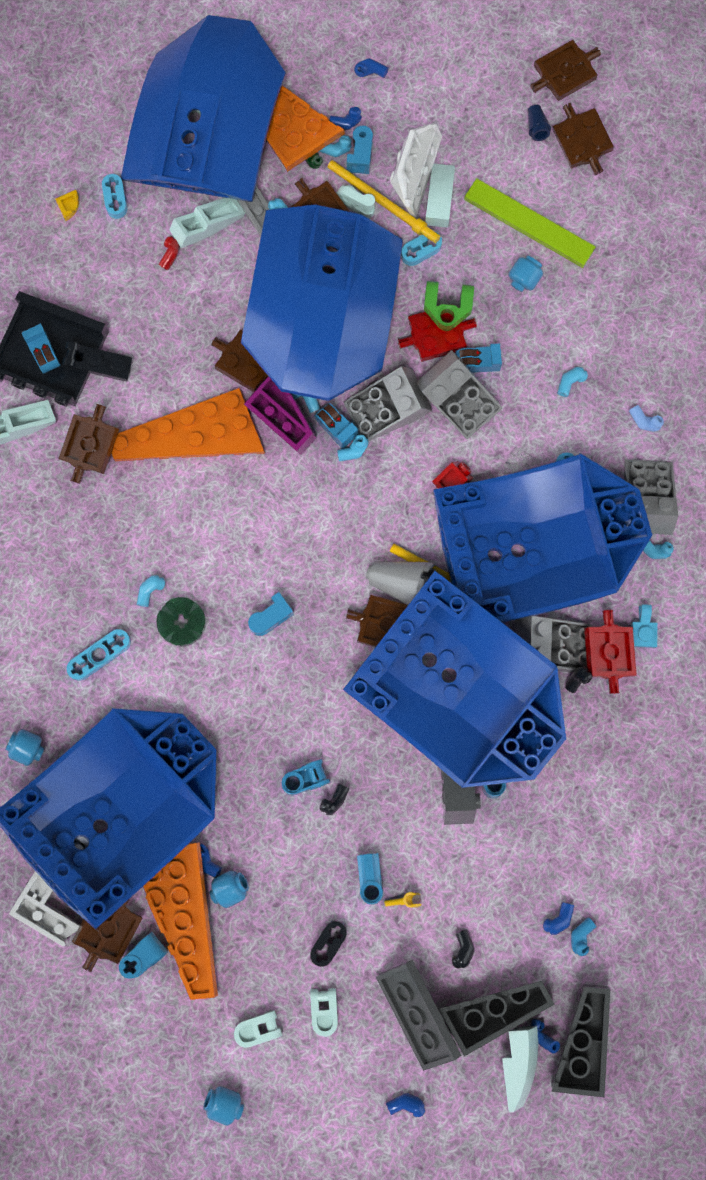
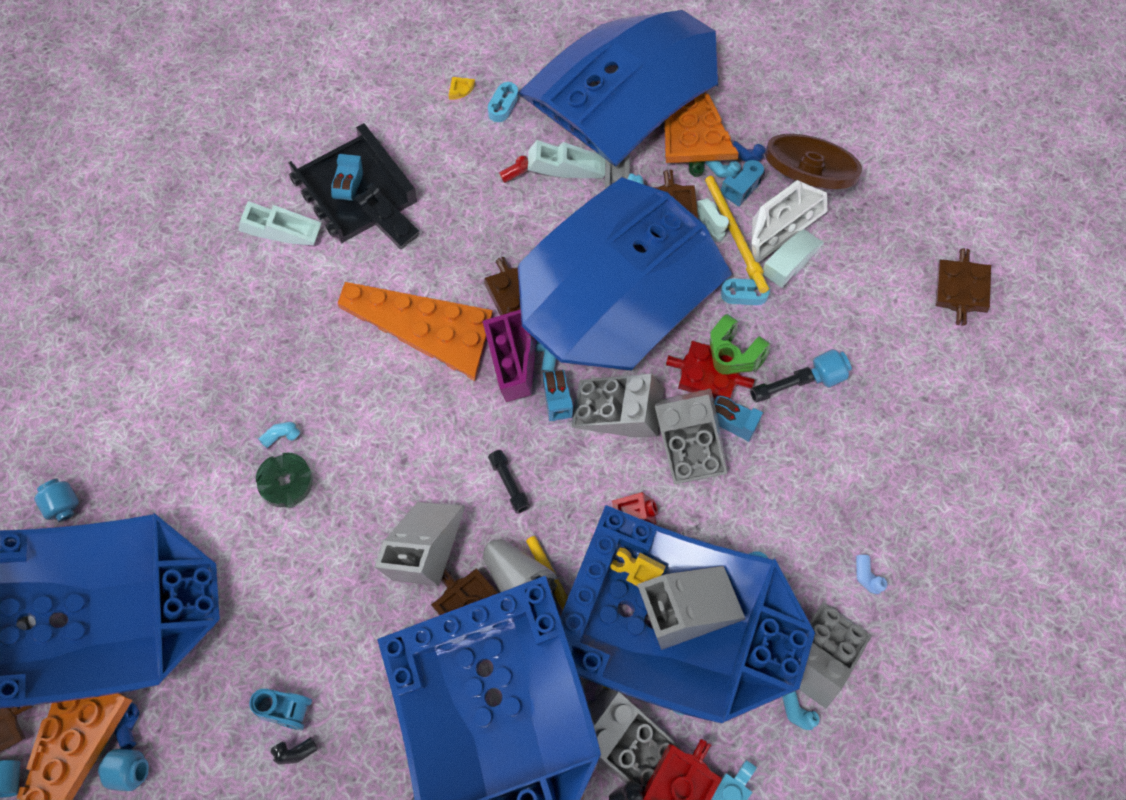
camera: 30 degrees right, 15 degrees down
(88, 444) = (325, 276): reddish brown plate -> none
(109, 638) = (169, 469): medium azure beam -> none
(264, 622) = (367, 529): dark azure leg -> none
(319, 601) = (420, 544): none -> light grey slope
(329, 505) = (518, 500): none -> black bar
(355, 450) = (559, 428): medium azure arm -> none
(370, 67) = (797, 123): blue arm -> none
(407, 99) = (813, 161): none -> reddish brown dish
(490, 521) = (639, 569): none -> yellow plate
(507, 295) = (763, 392): none -> black bar
(529, 223) = (865, 330): lime tile -> none
(538, 124) = (926, 250): dark blue cone -> none
(541, 523) = (690, 604): none -> light grey slope
(565, 70) = (982, 220): reddish brown plate -> none
(570, 377) = (813, 488): medium azure arm -> none

